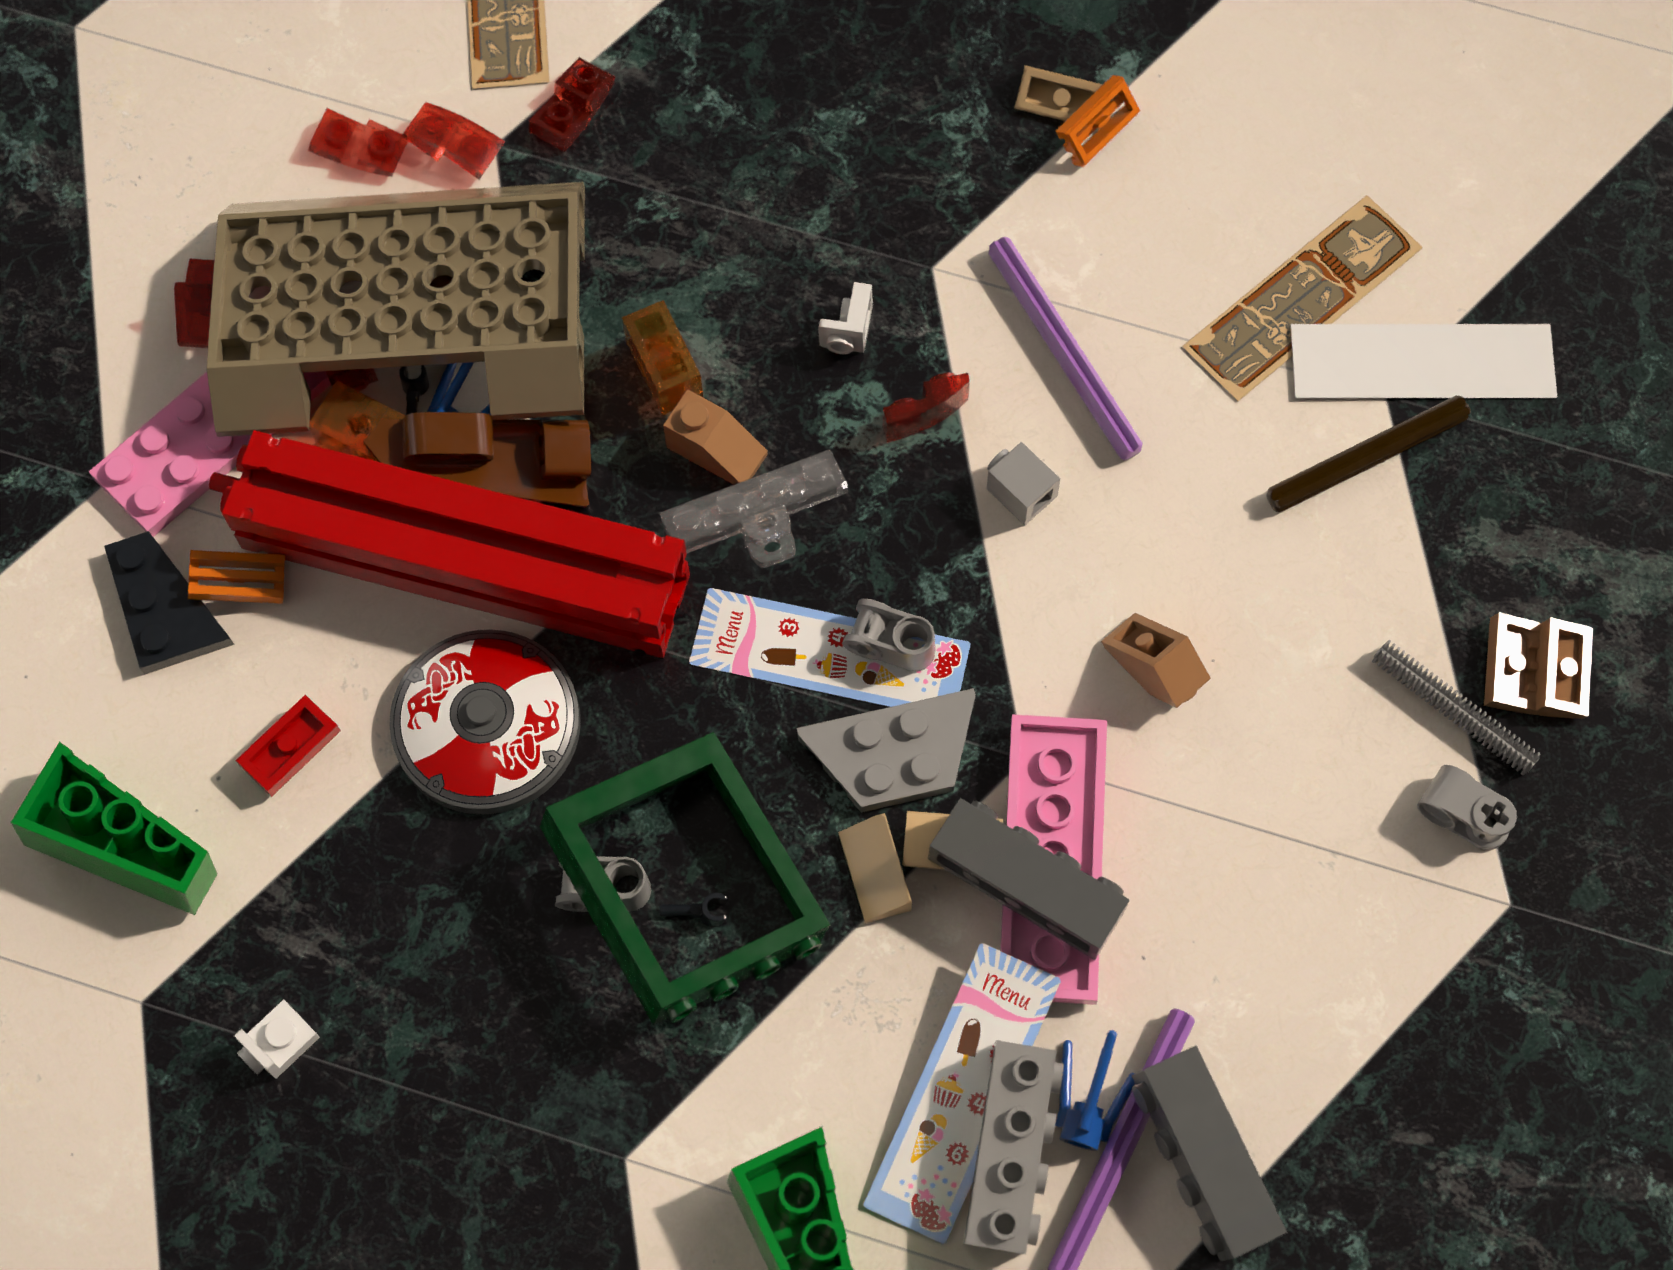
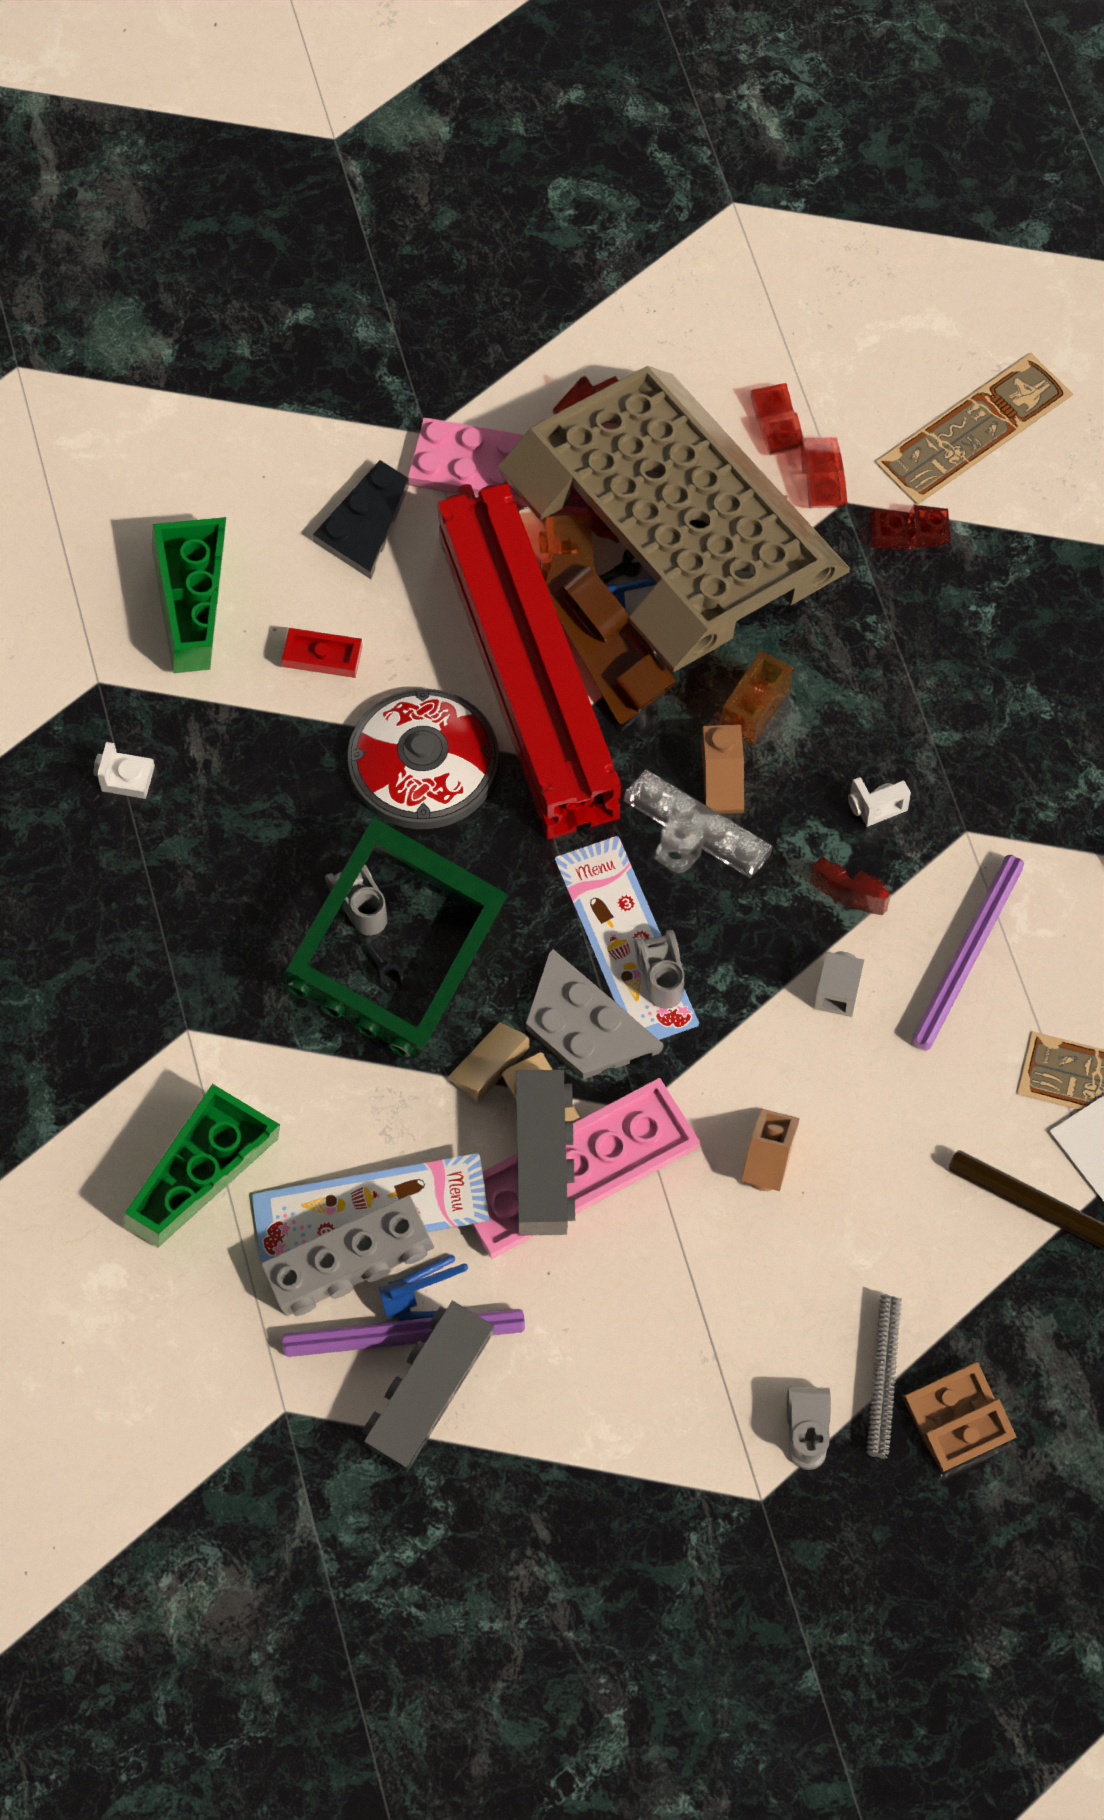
camera: 55 degrees right, 5 degrees down
(236, 560) = (398, 522): orange tile -> none

